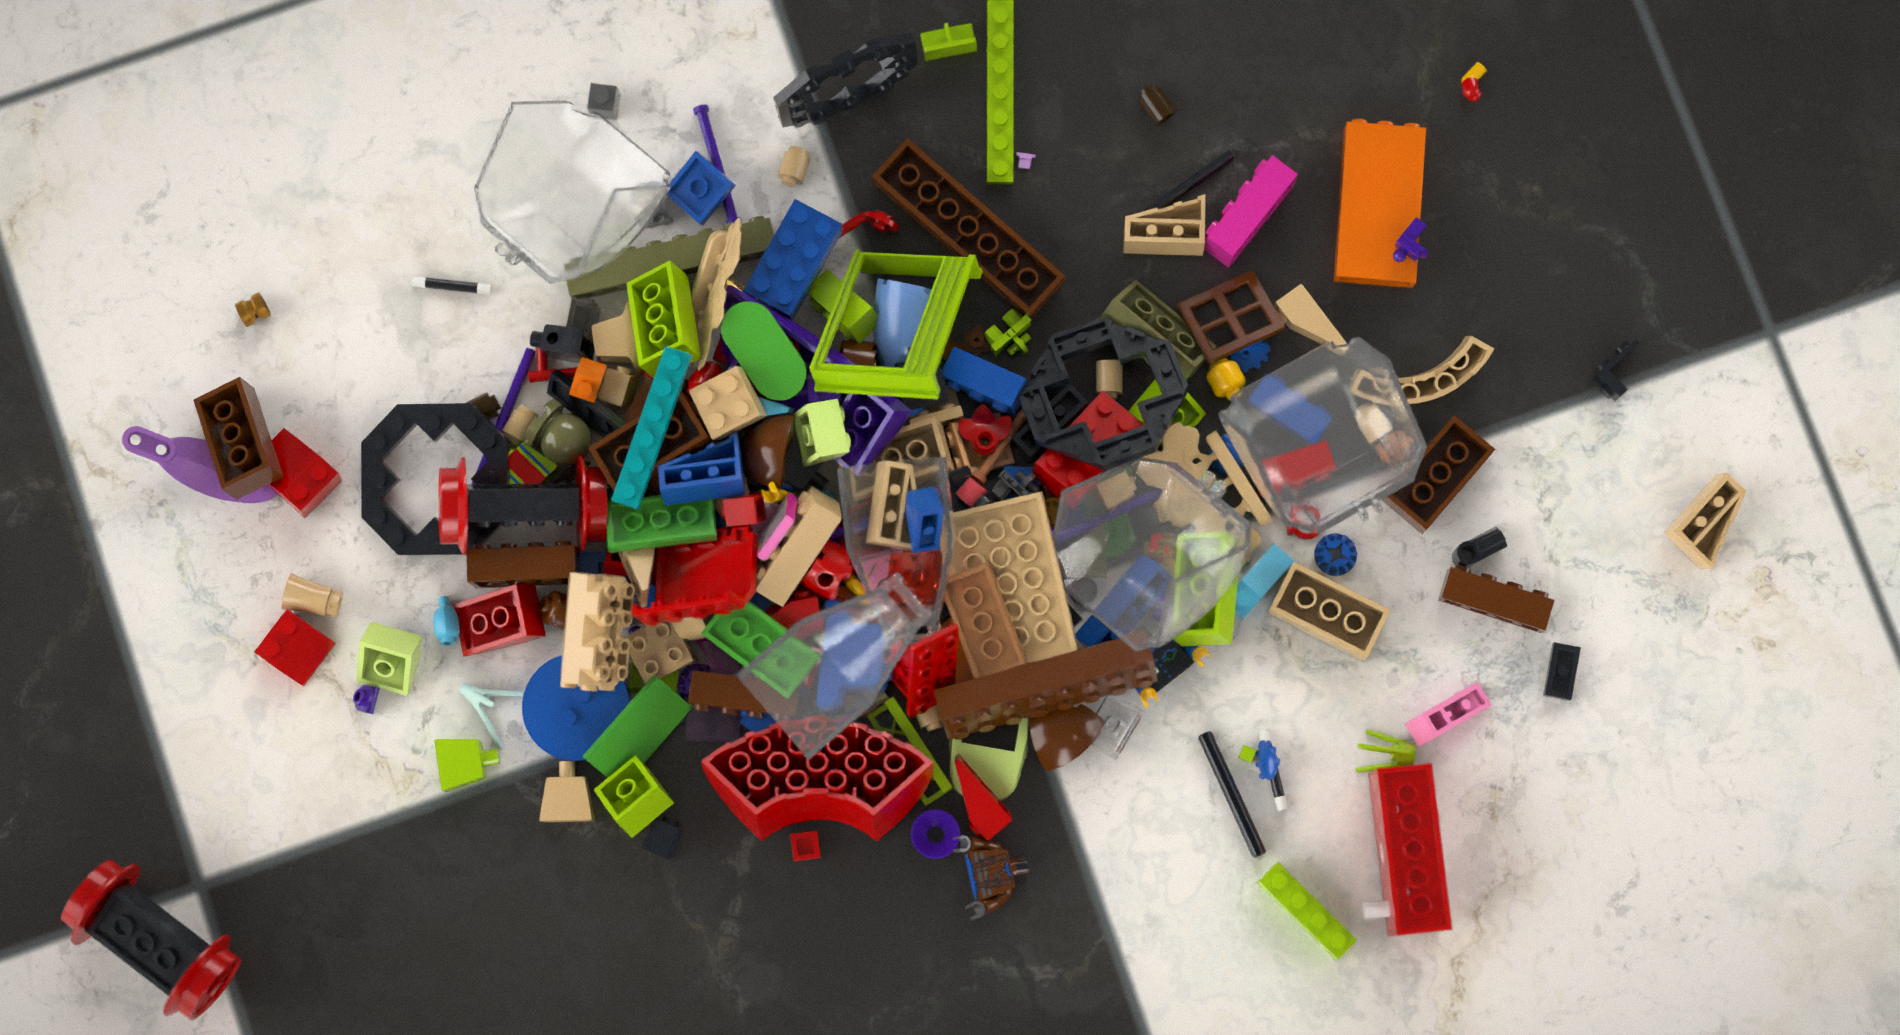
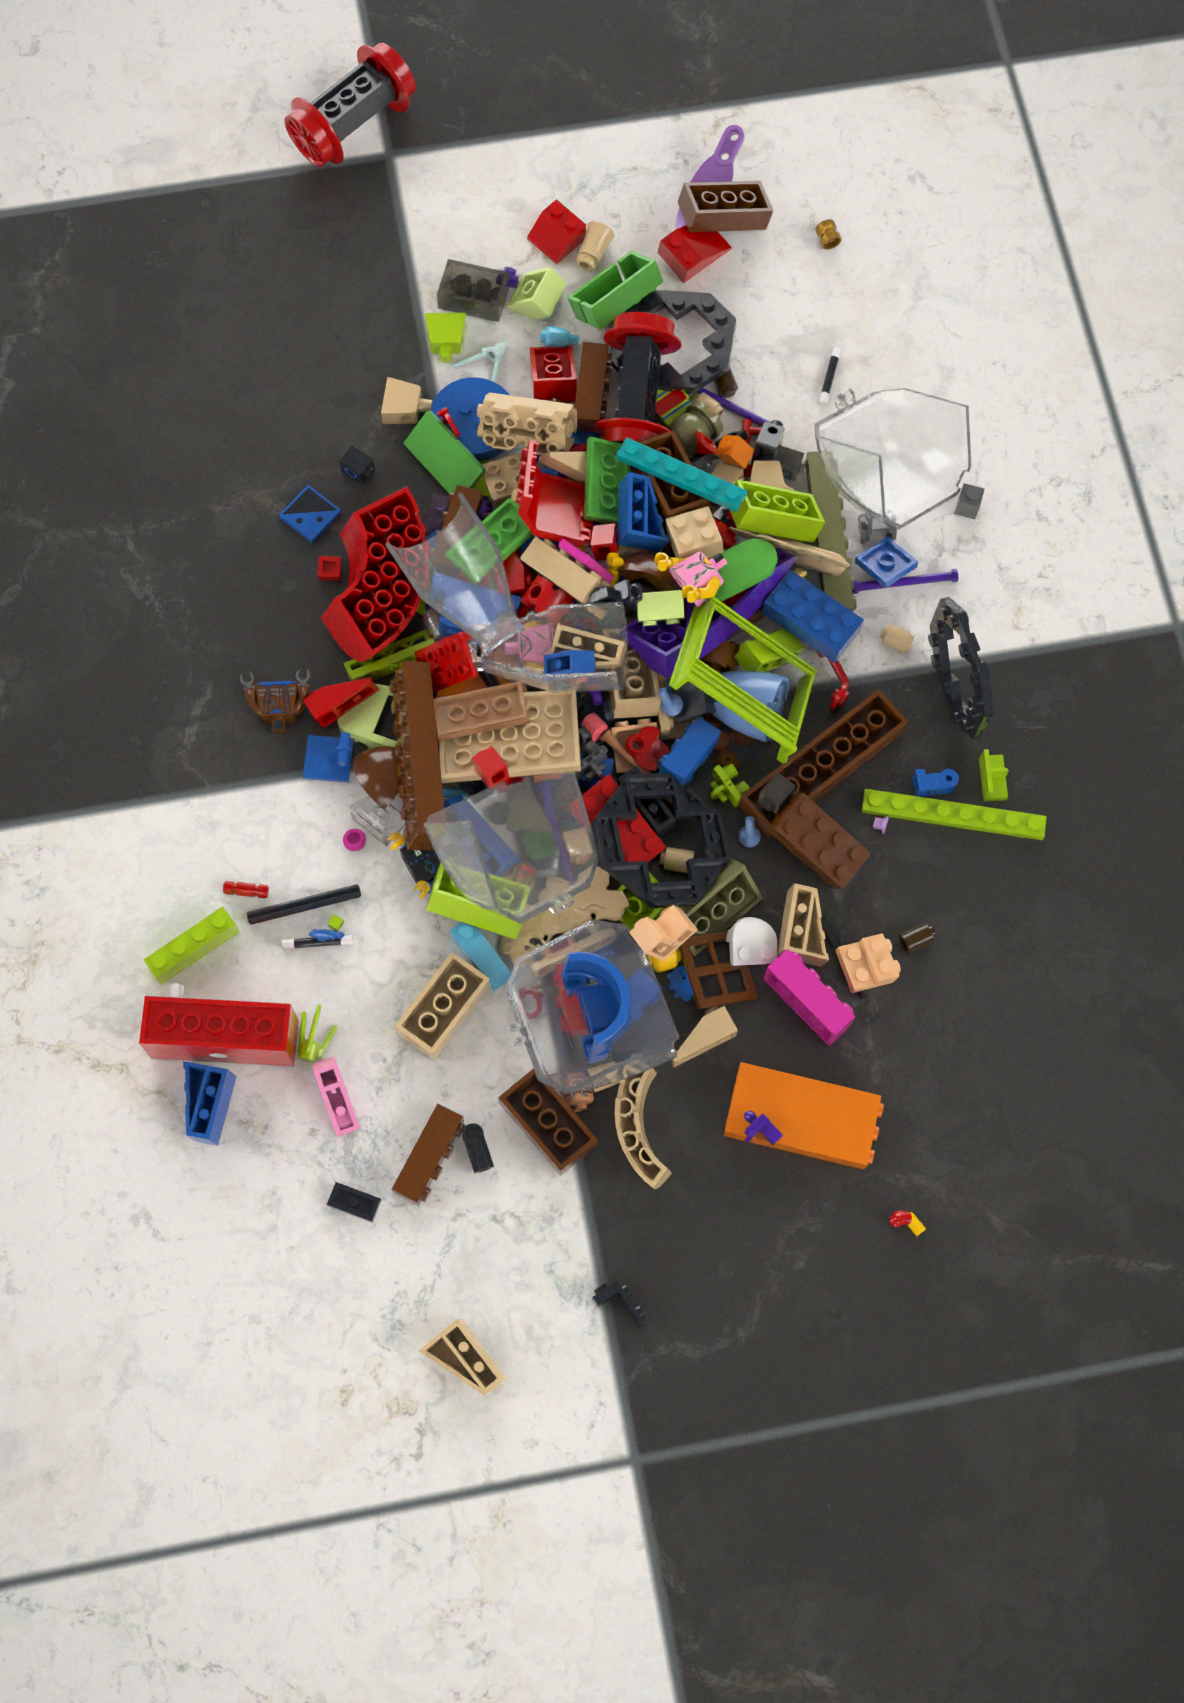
camera: 90 degrees right, 10 degrees down
(381, 558) = (609, 296): none -> bright green piece
(398, 736) = (473, 290): none -> clear smoke brick
(586, 414) = (704, 444): none -> red slope
(589, 734) = (447, 419): none -> red piece
(633, 796) = (392, 444): lime brick -> none
(734, 885) = (310, 514): none -> blue tile
(785, 391) = (694, 574): none -> torso
(824, 471) = (623, 593): none -> black plate
(919, 574) = (523, 654): clear red tile -> none
(924, 823) = (315, 655): dark purple piece -> none
(932, 408) = (671, 703): none -> medium blue plate
(966, 97) = (934, 783): none -> blue leg
(1025, 273) = (776, 793): none -> clear smoke brick
(1049, 799) = (328, 758): none -> blue plate
(1060, 593) = (490, 767): none -> red brick
(1064, 303) = (749, 835): none -> medium blue plate
(1069, 221) = (818, 841): none -> reddish brown brick
(1144, 751) = (354, 840): none -> dark pink plate
(1194, 283) = (752, 942): none -> white slope
(1195, 153) = (868, 963): none -> light nougat plate
(1217, 377) = (665, 934): none -> light nougat brick
(1225, 864) = (246, 889): none -> red axle
(1314, 424) = (602, 1005): none -> blue piece
(1323, 557) = (494, 1036): blue gear -> none
(1483, 854) = (207, 1101): none -> blue wedge

